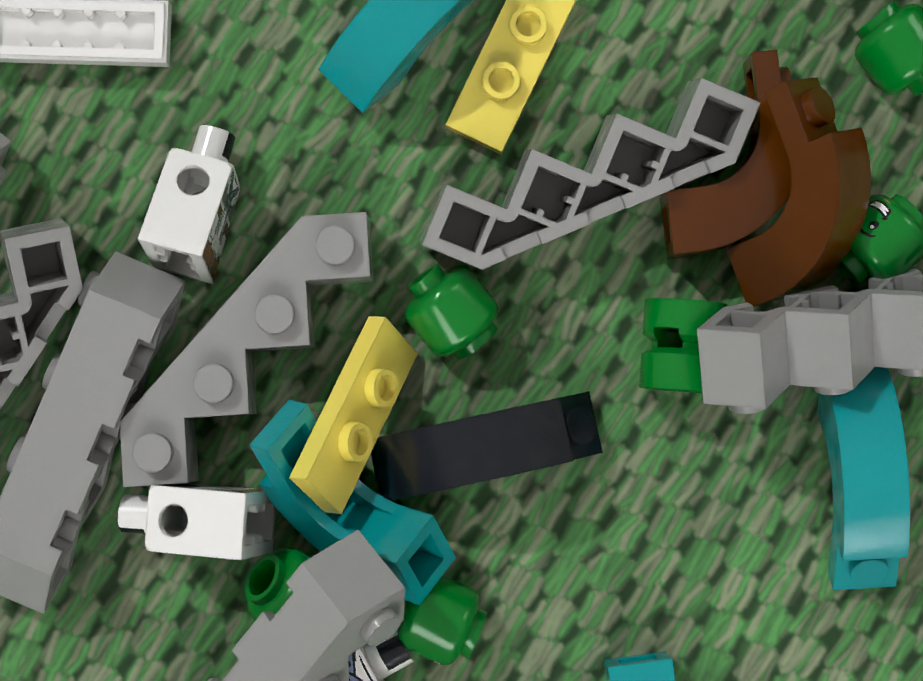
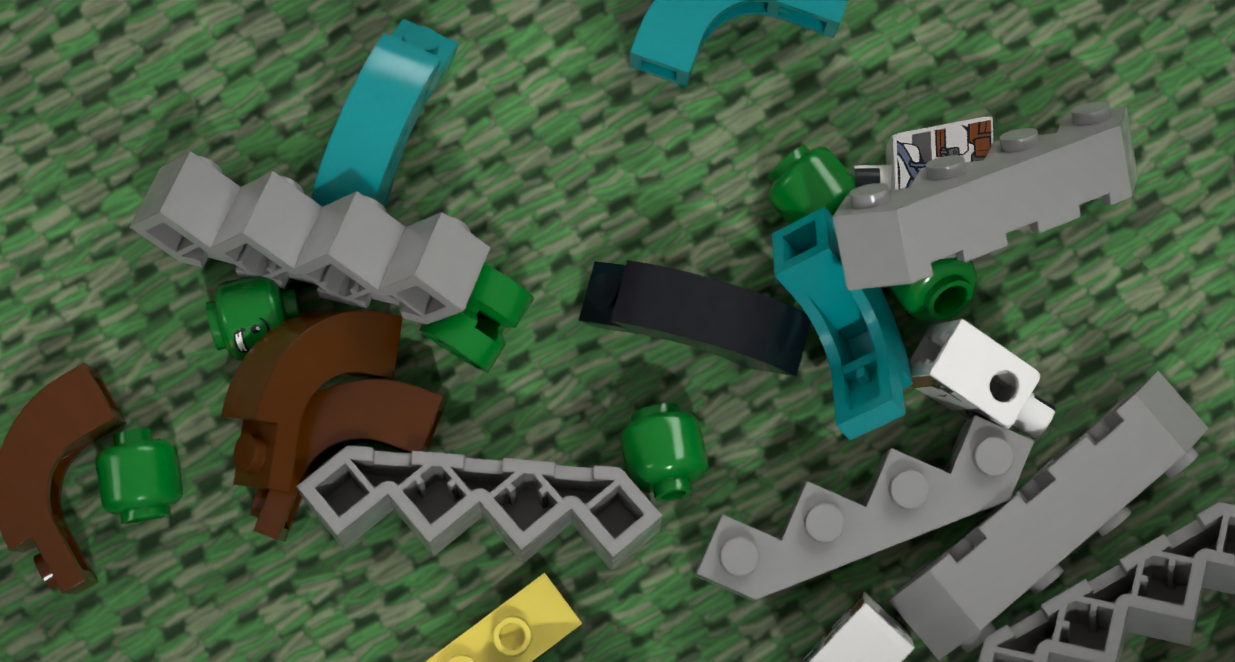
camera: 160 degrees left, 5 degrees down
(354, 415) = (797, 400): light yellow plate -> none

